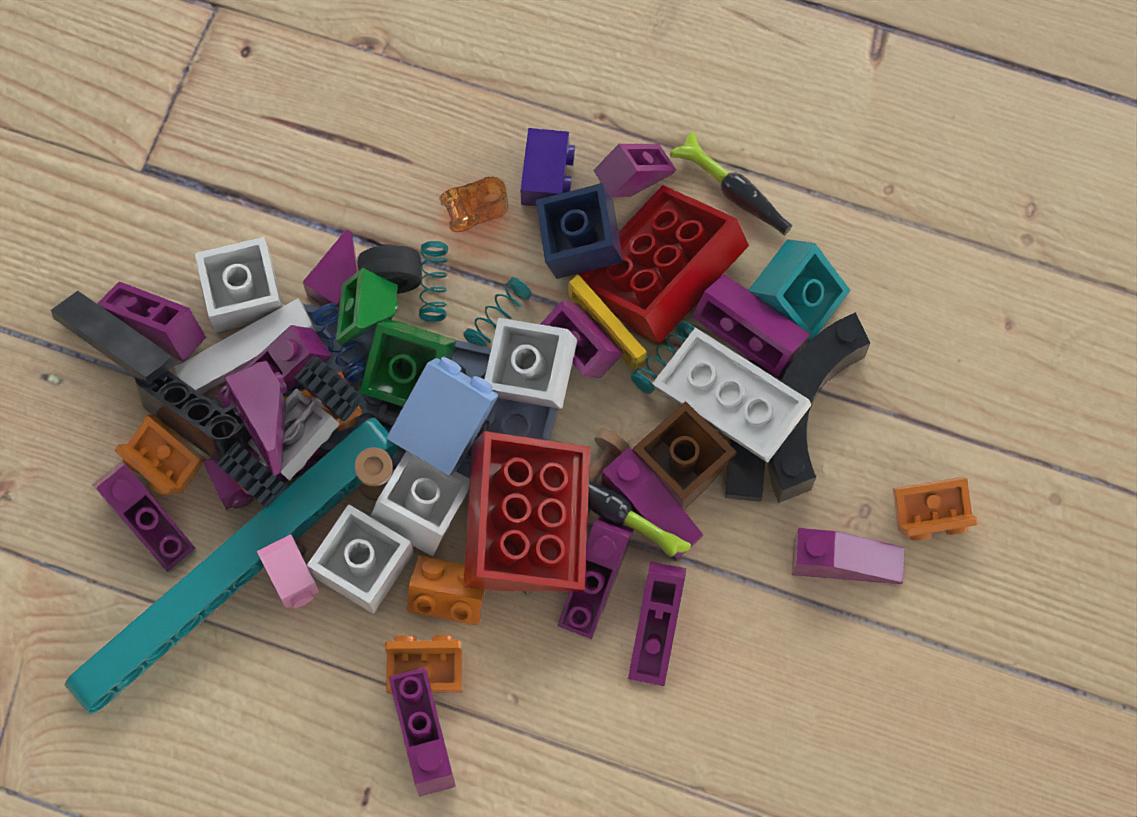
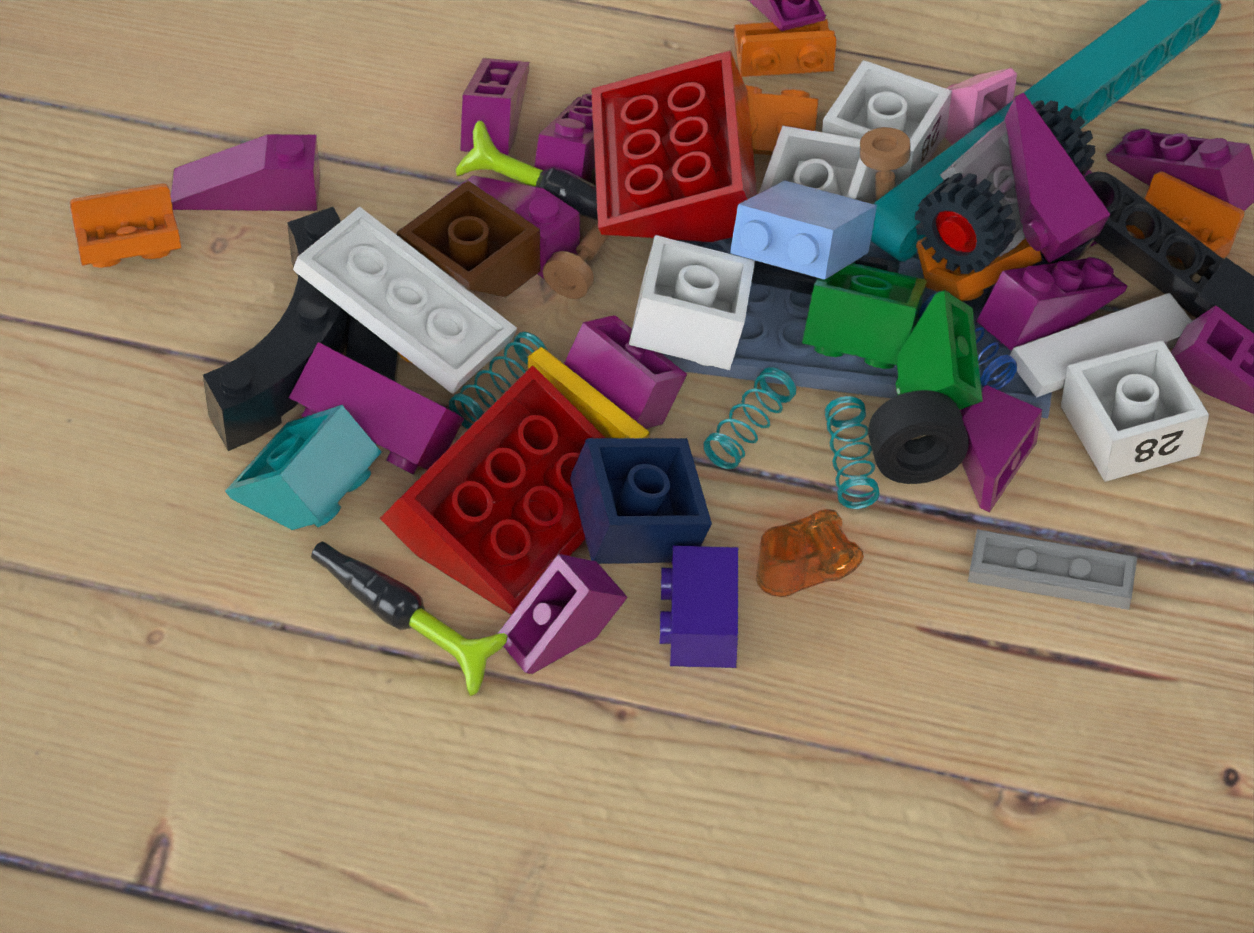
camera: 175 degrees right, 20 degrees down
(319, 192) = (1053, 569): none -> light grey tile

